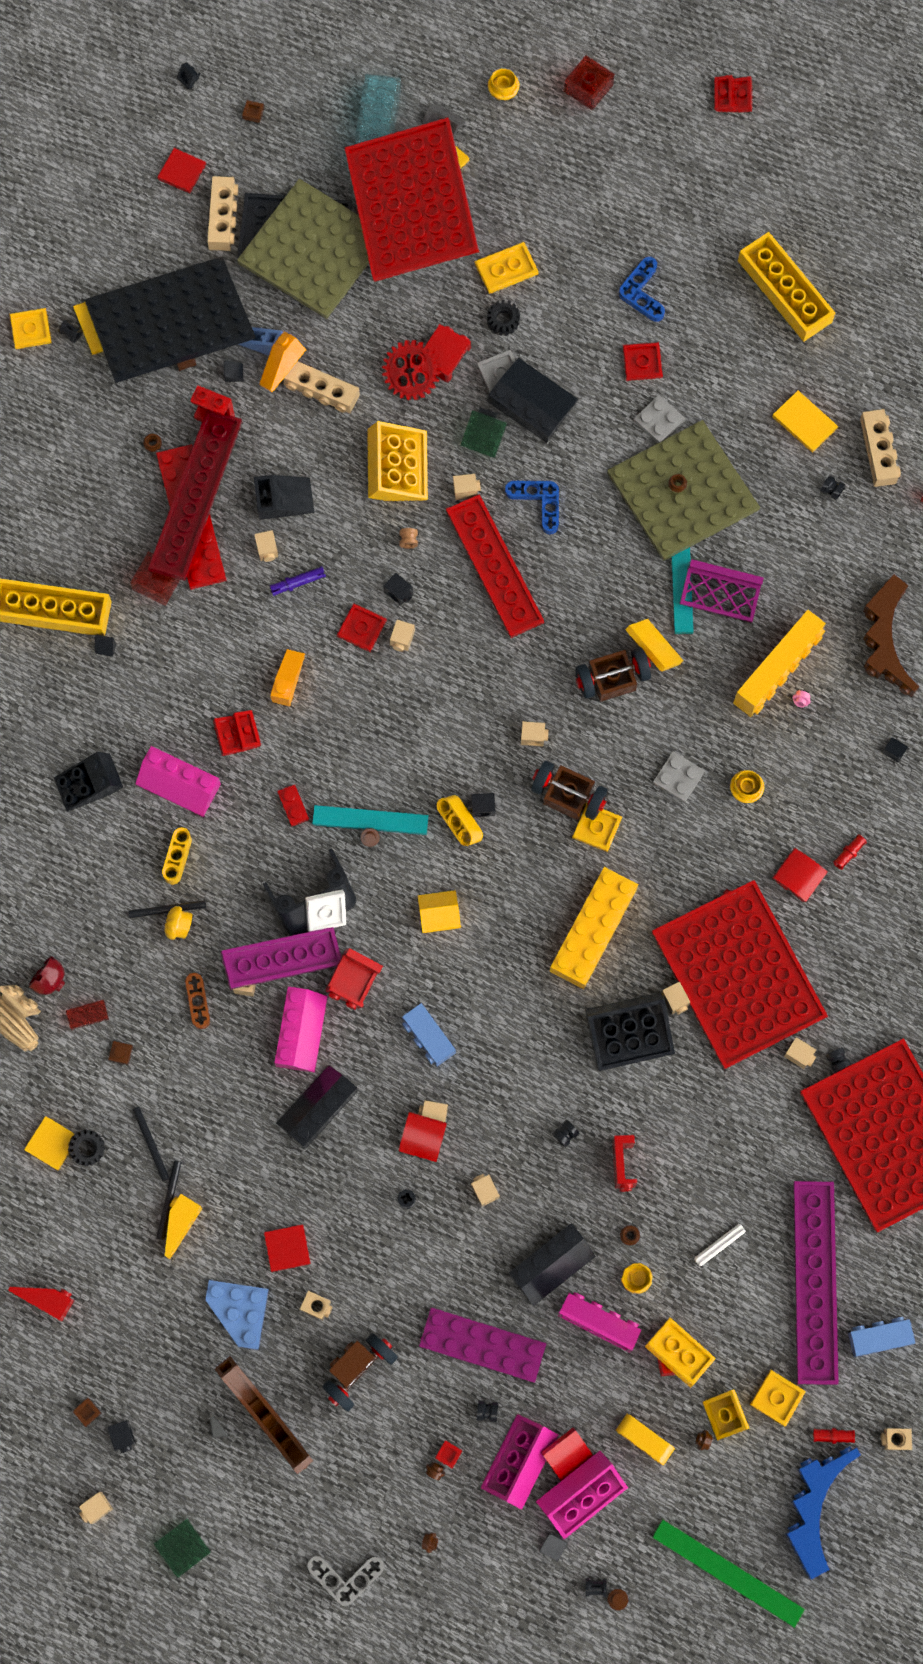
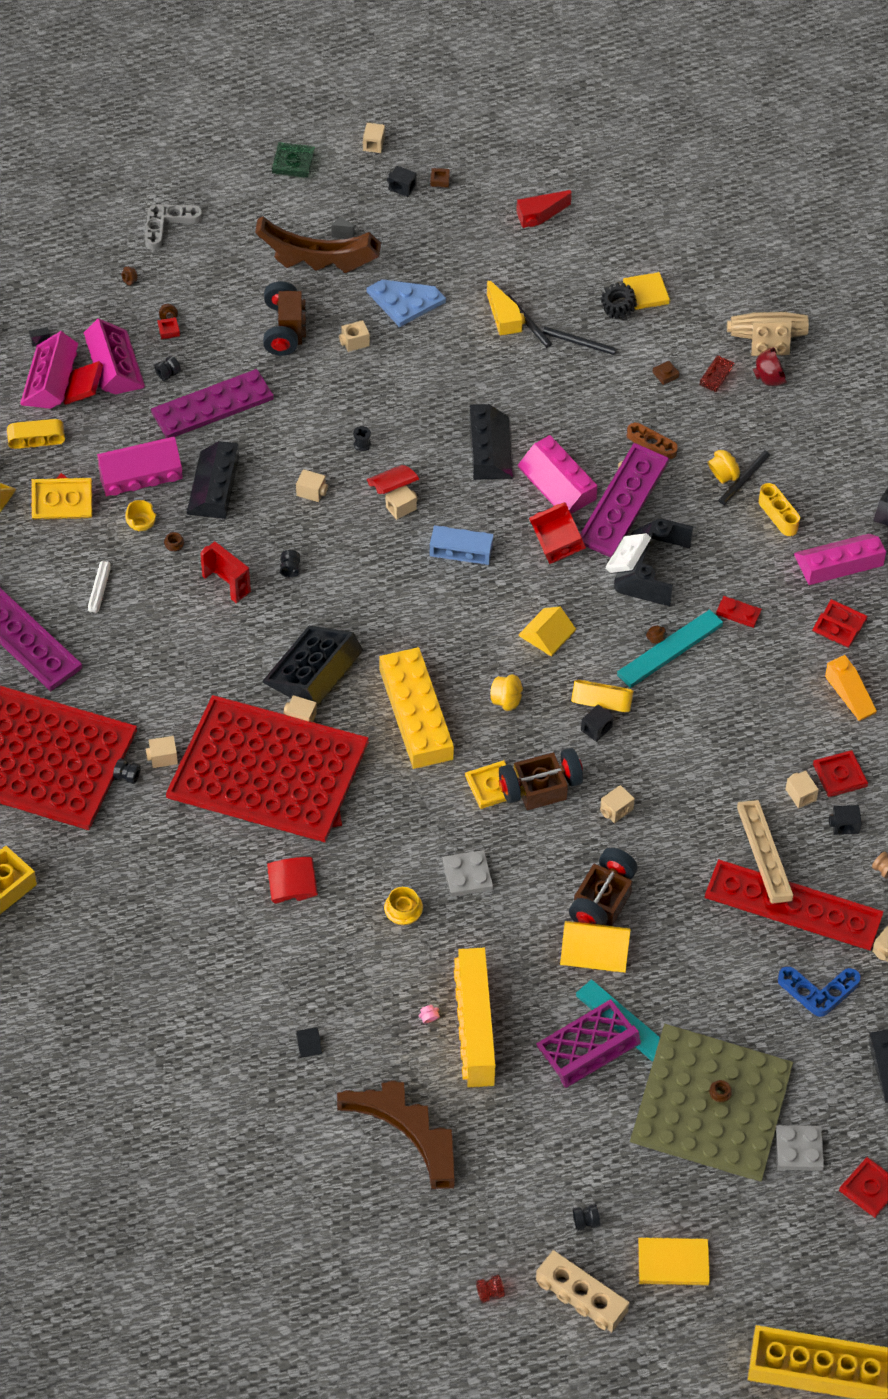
camera: 135 degrees right, 20 degrees down
(287, 1248) = (413, 355): red tile -> none
(477, 611) = (765, 851): none -> tan plate
(521, 880) = (506, 692): none -> yellow piece
(849, 852) = (267, 929): red pin -> none

